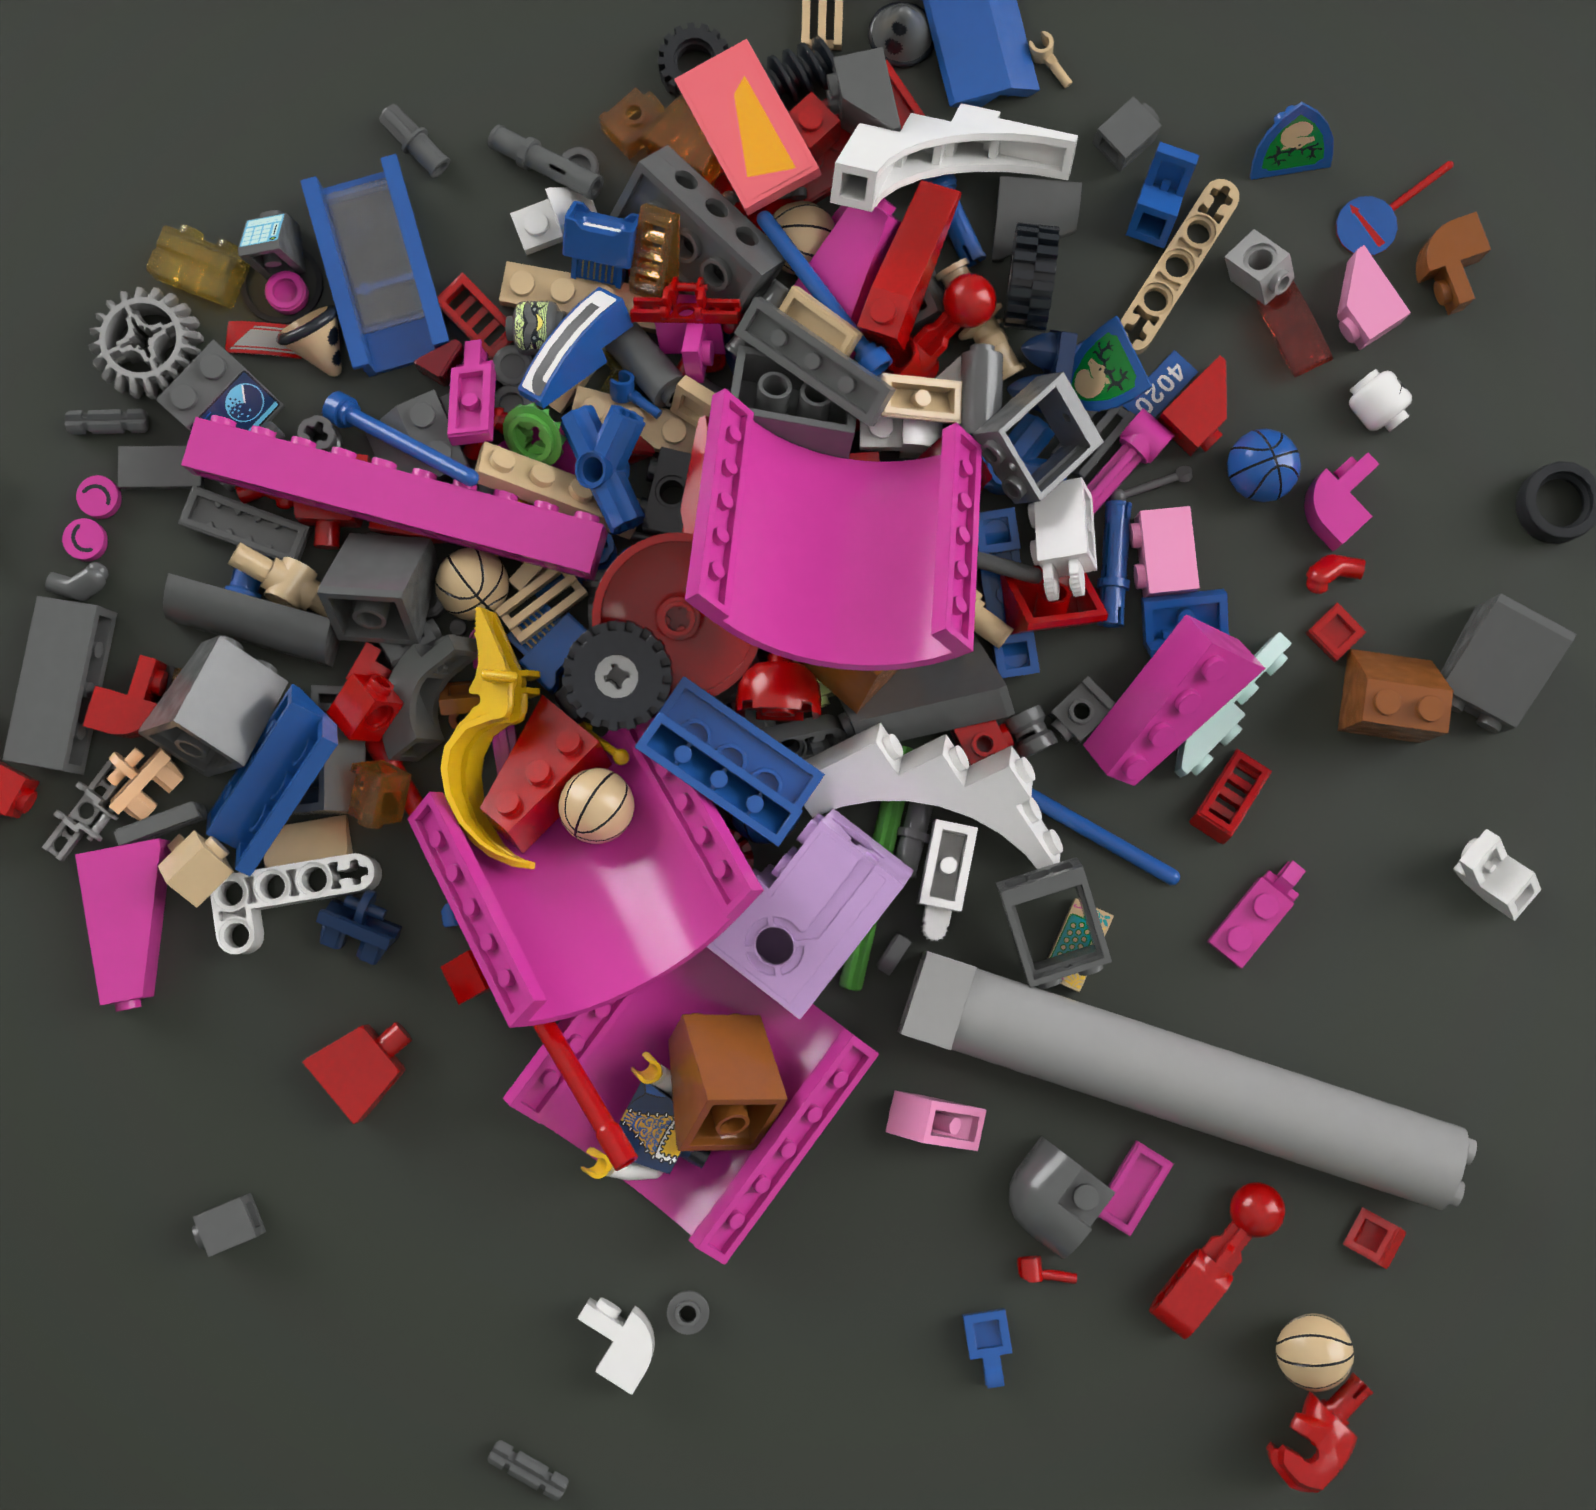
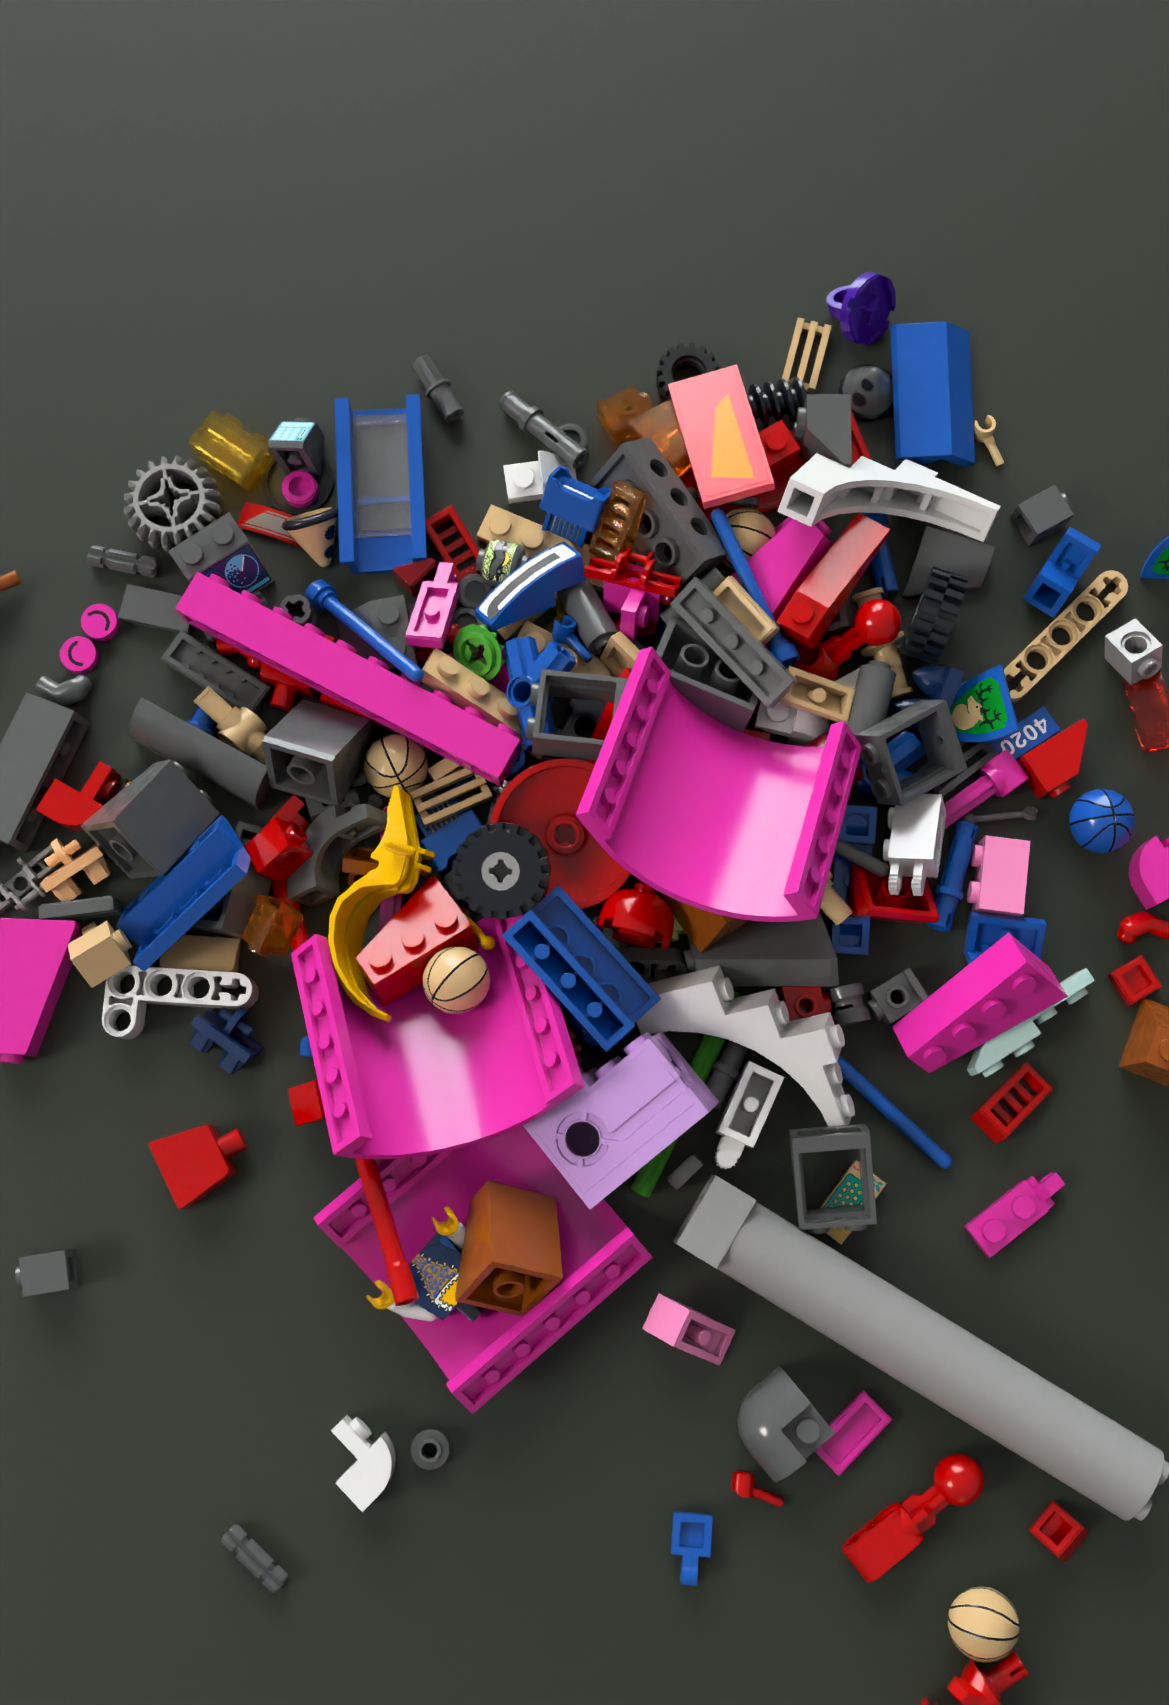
camera: 15 degrees right, 5 degrees down
(646, 452) = (569, 686): none -> dark grey window

